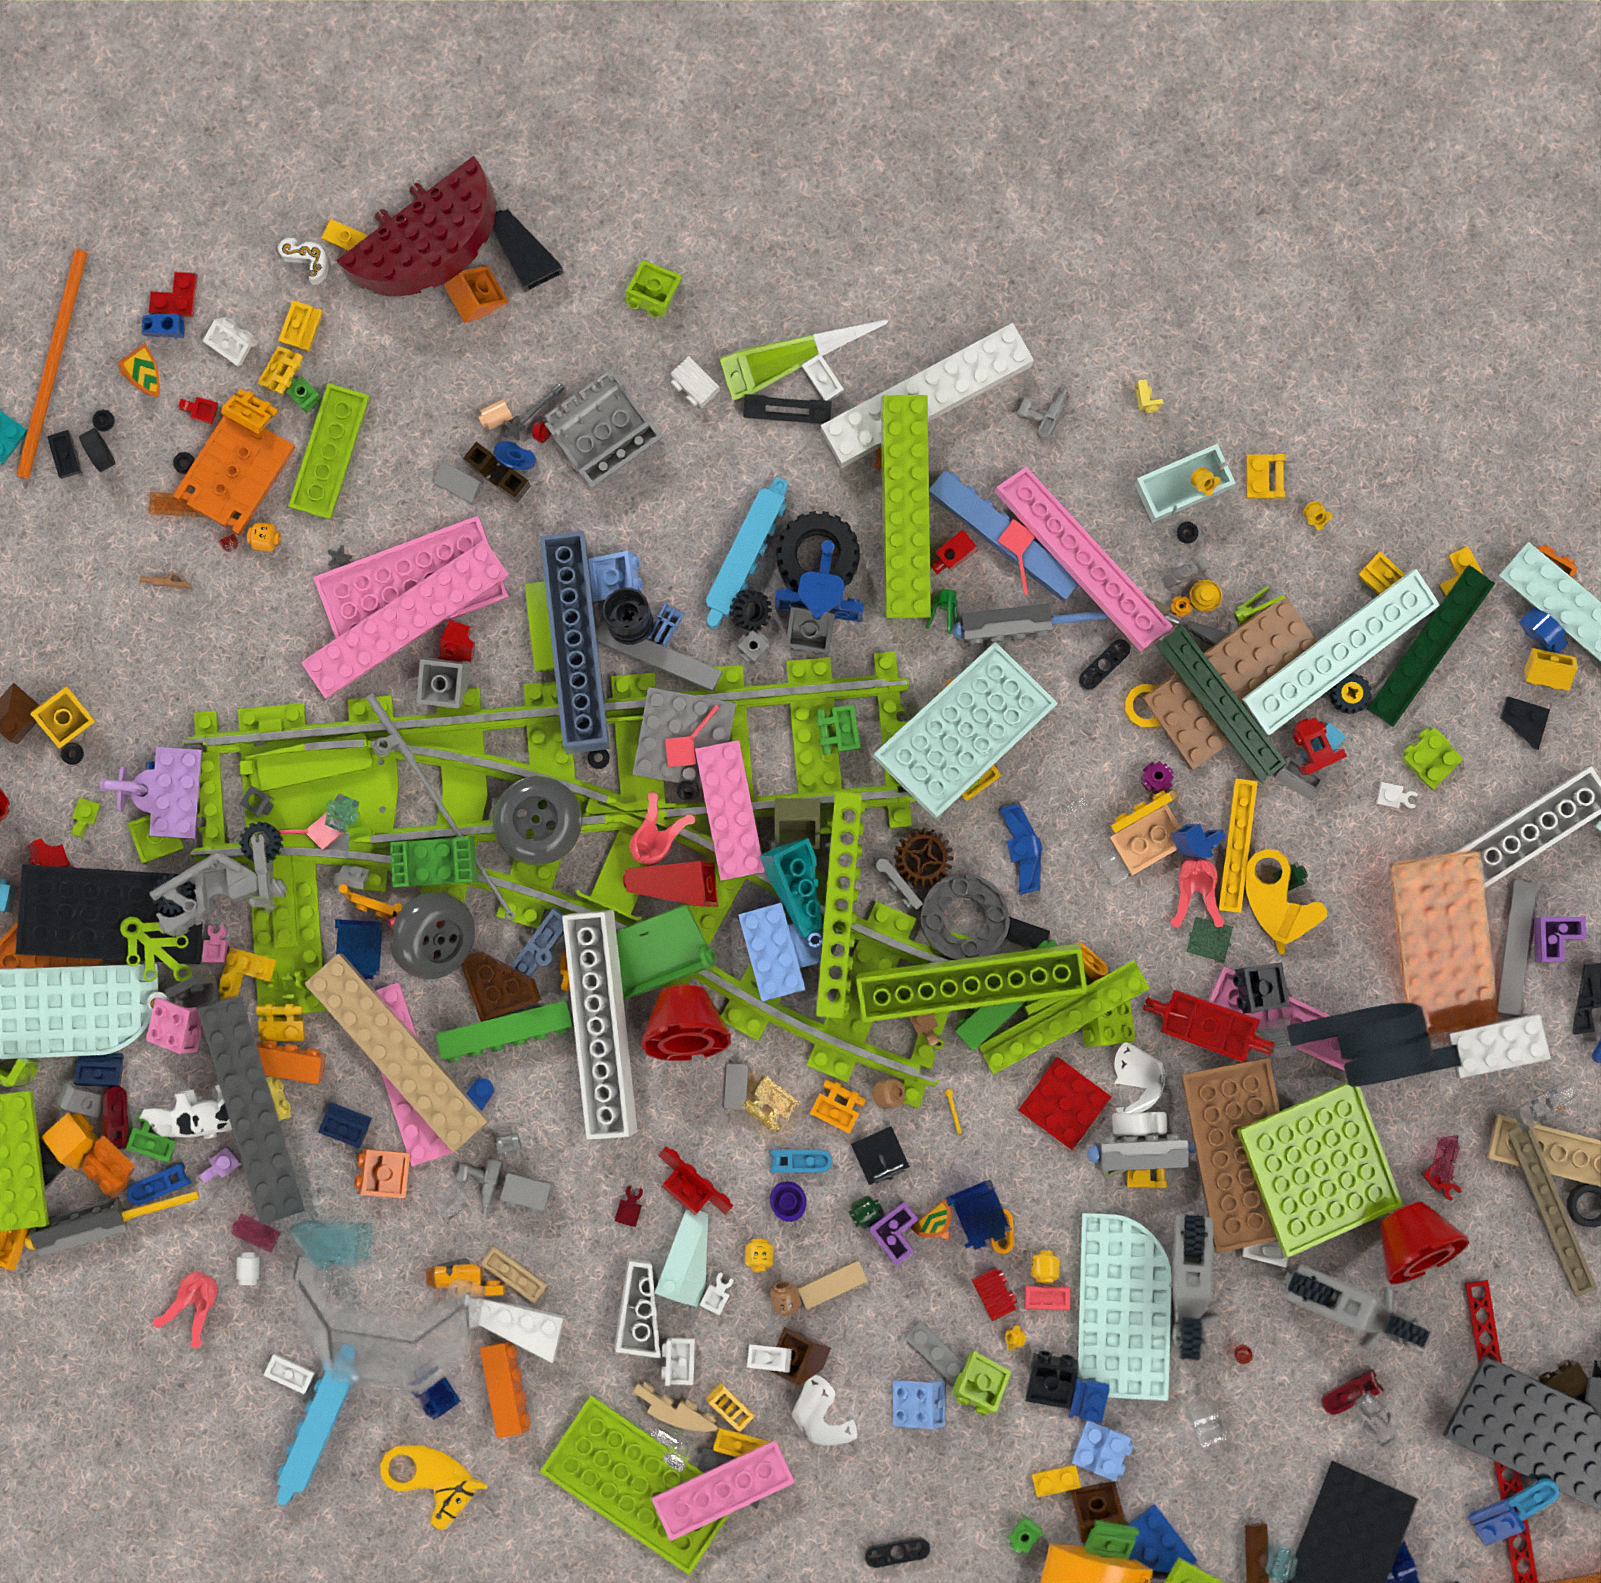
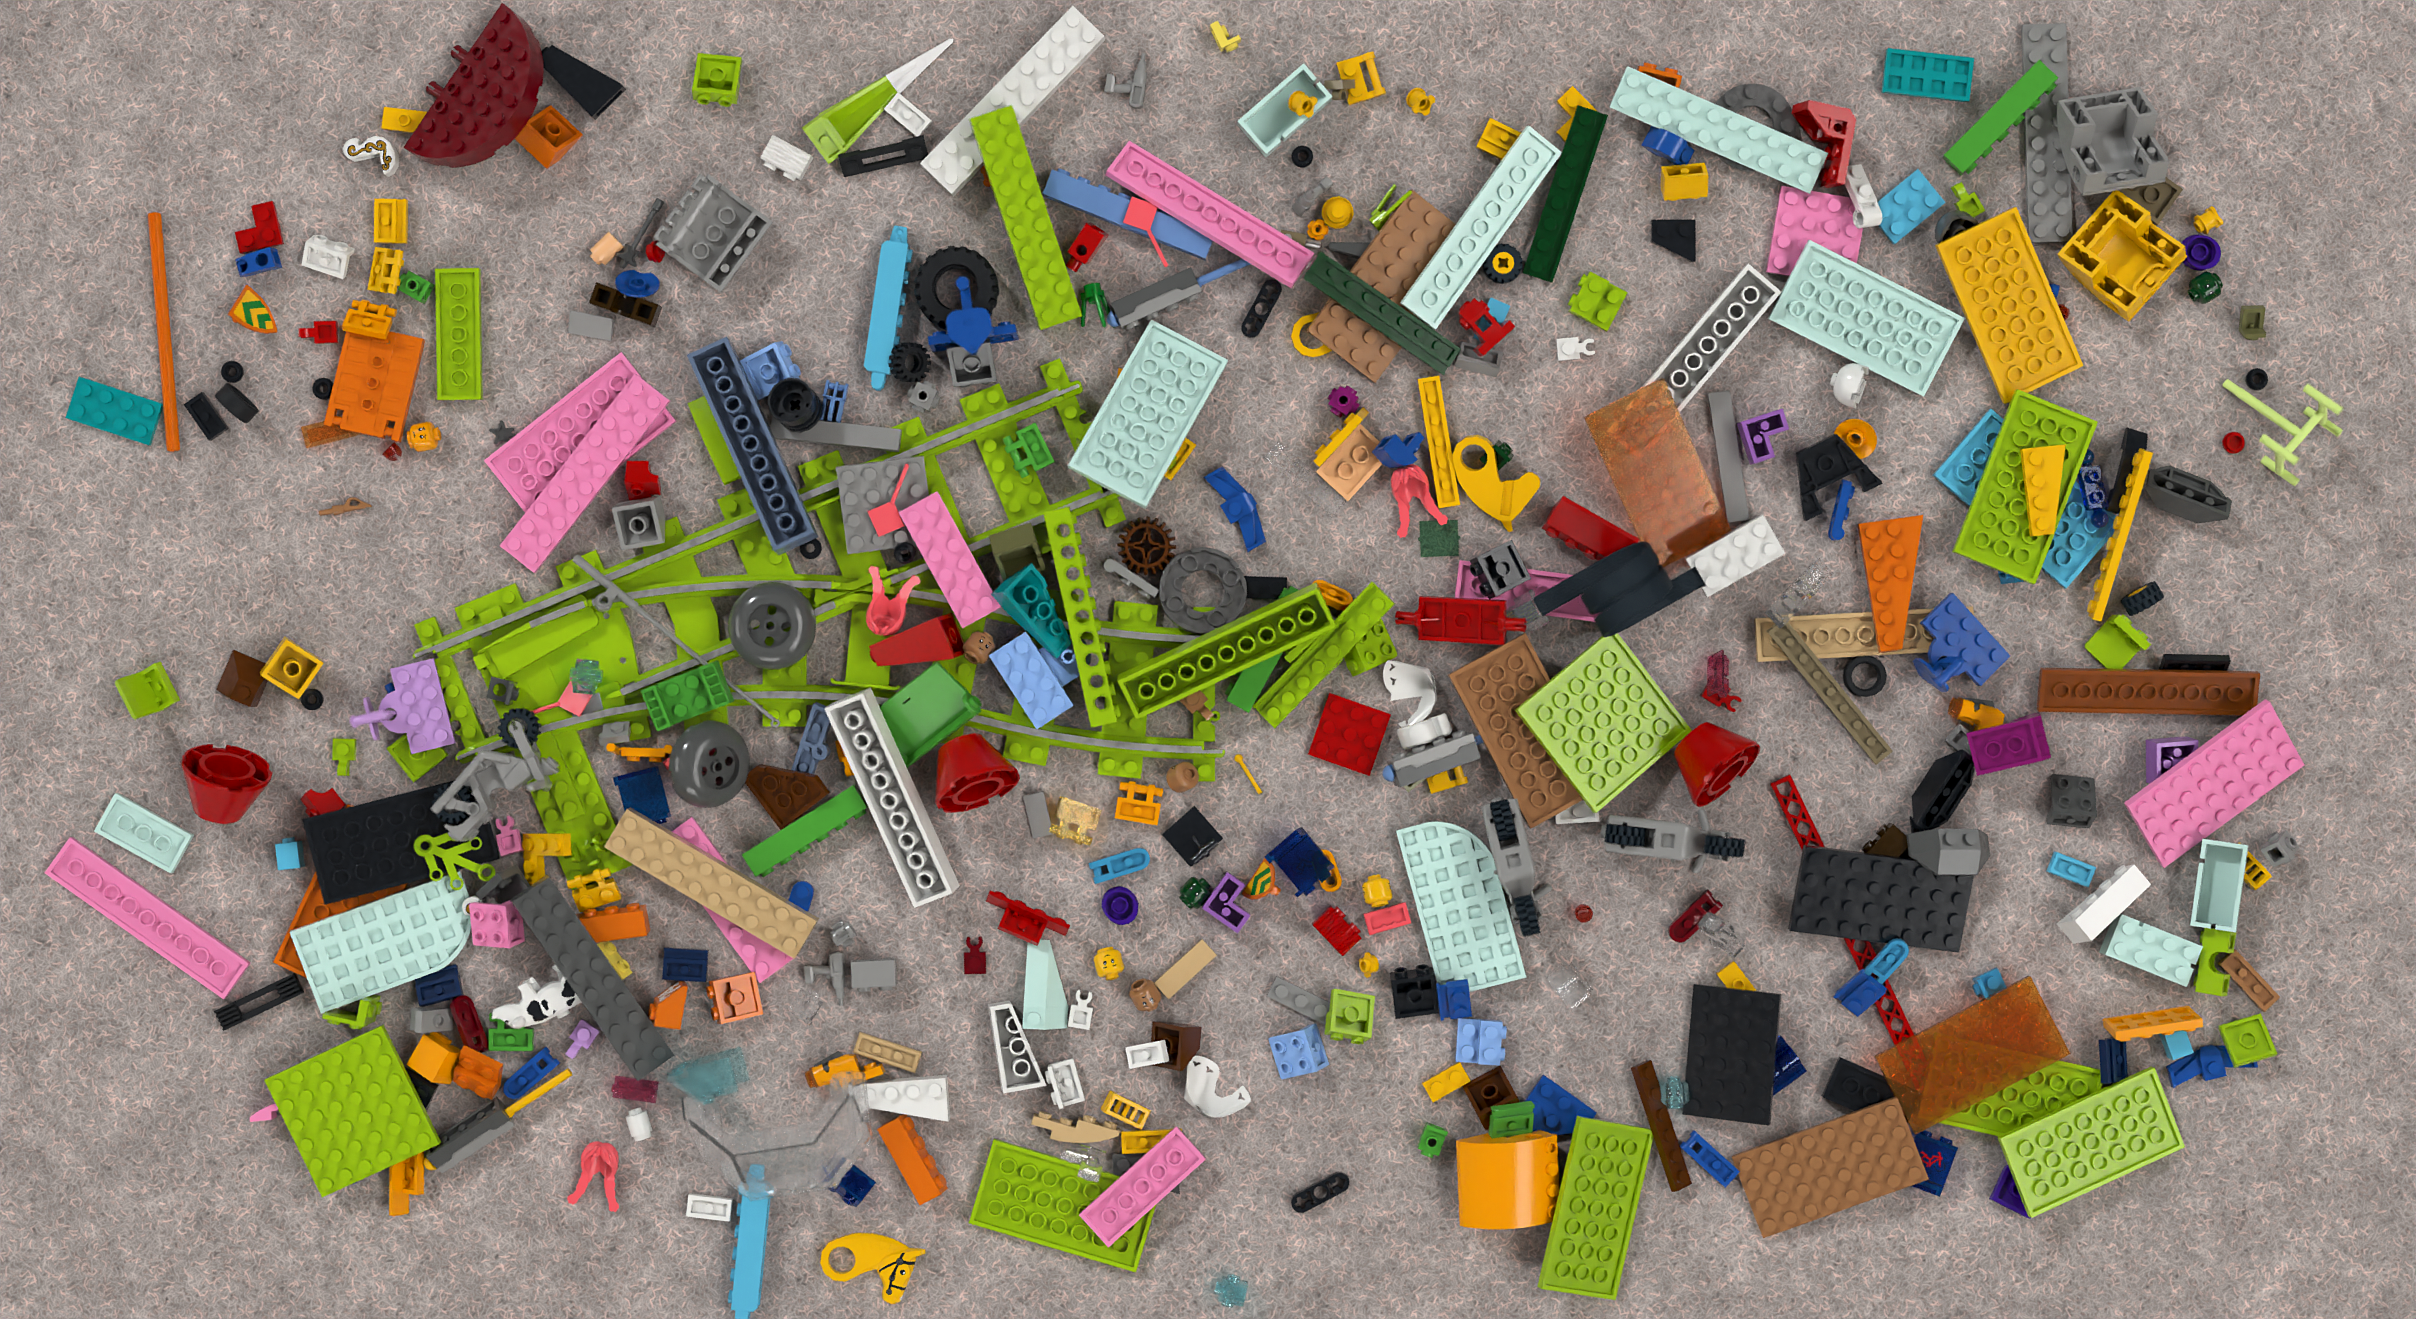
camera: 20 degrees left, 5 degrees up
(315, 1161) = (669, 1006): none -> orange slope
(730, 904) = (978, 647): none -> medium nougat head
(1243, 478) = (1340, 88): none -> dark tan tile
(1357, 975) = (1585, 530): none -> red slope
(1374, 1467) = (1734, 978): none -> yellow plate

